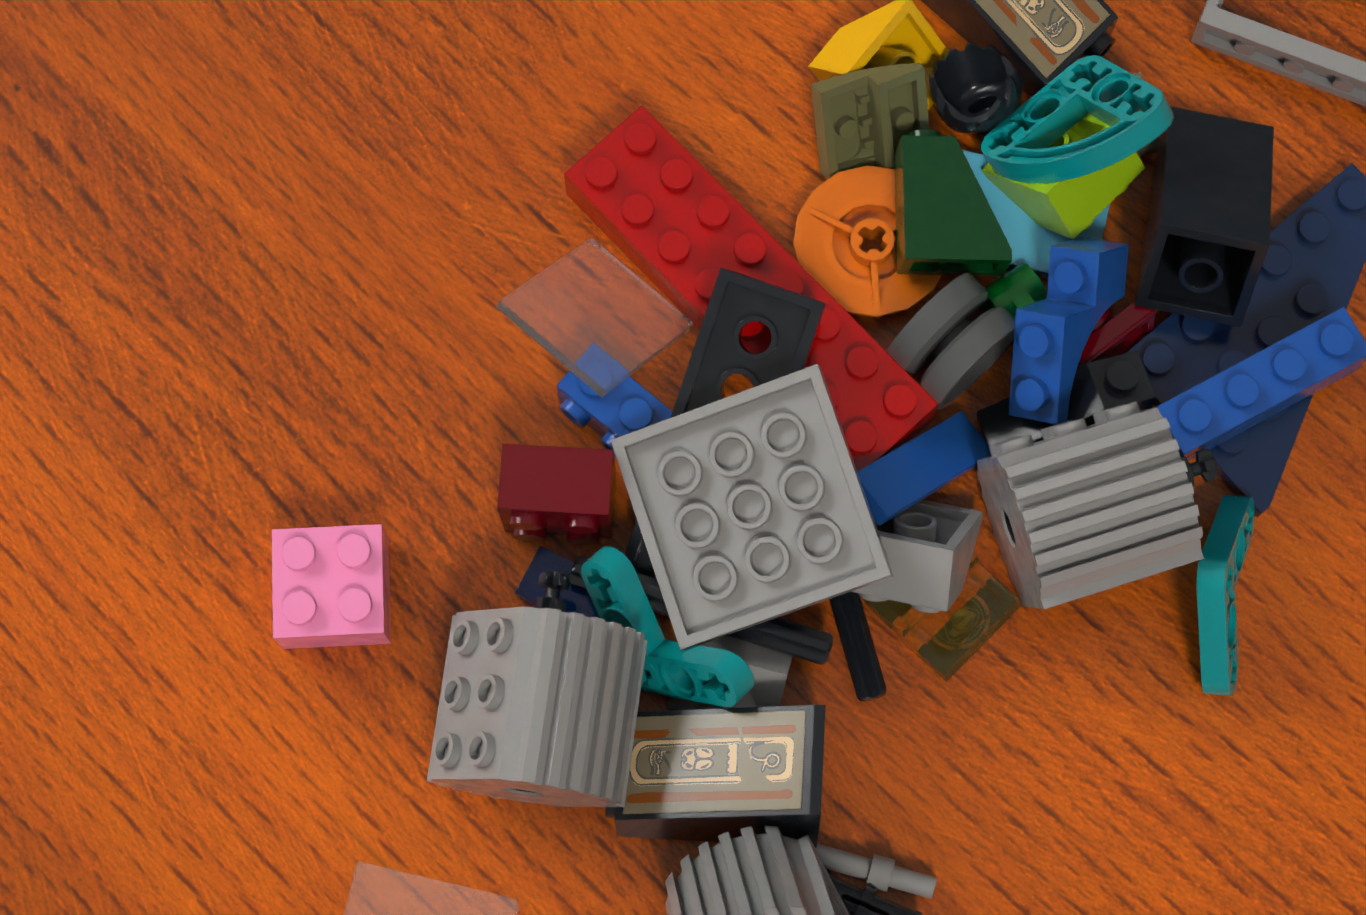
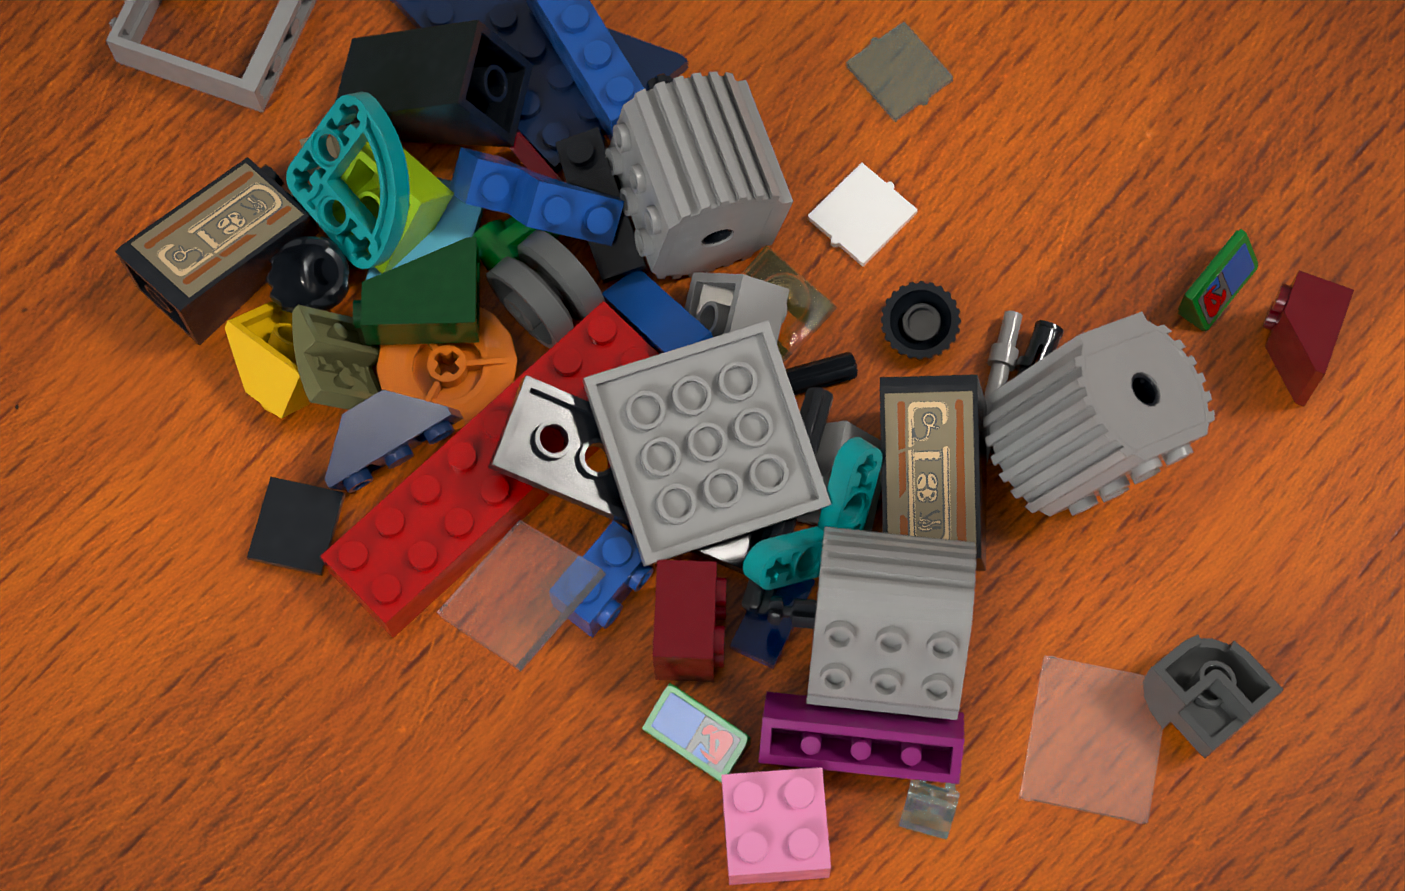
camera: 90 degrees left, 5 degrees down
(344, 754) = (929, 808): none -> clear light blue tile
(413, 678) = (860, 740): none -> magenta brick
(443, 509) = (696, 733): none -> slope
(692, 89) = (296, 525): none -> black piece
(785, 171) = (382, 434): none -> slope
(922, 774) = (920, 320): none -> black hat
(1067, 716) = (862, 214): none -> white piece
(1216, 593) = (774, 82): teal beam -> none
(1258, 769) = (899, 71): none -> clear light blue piece

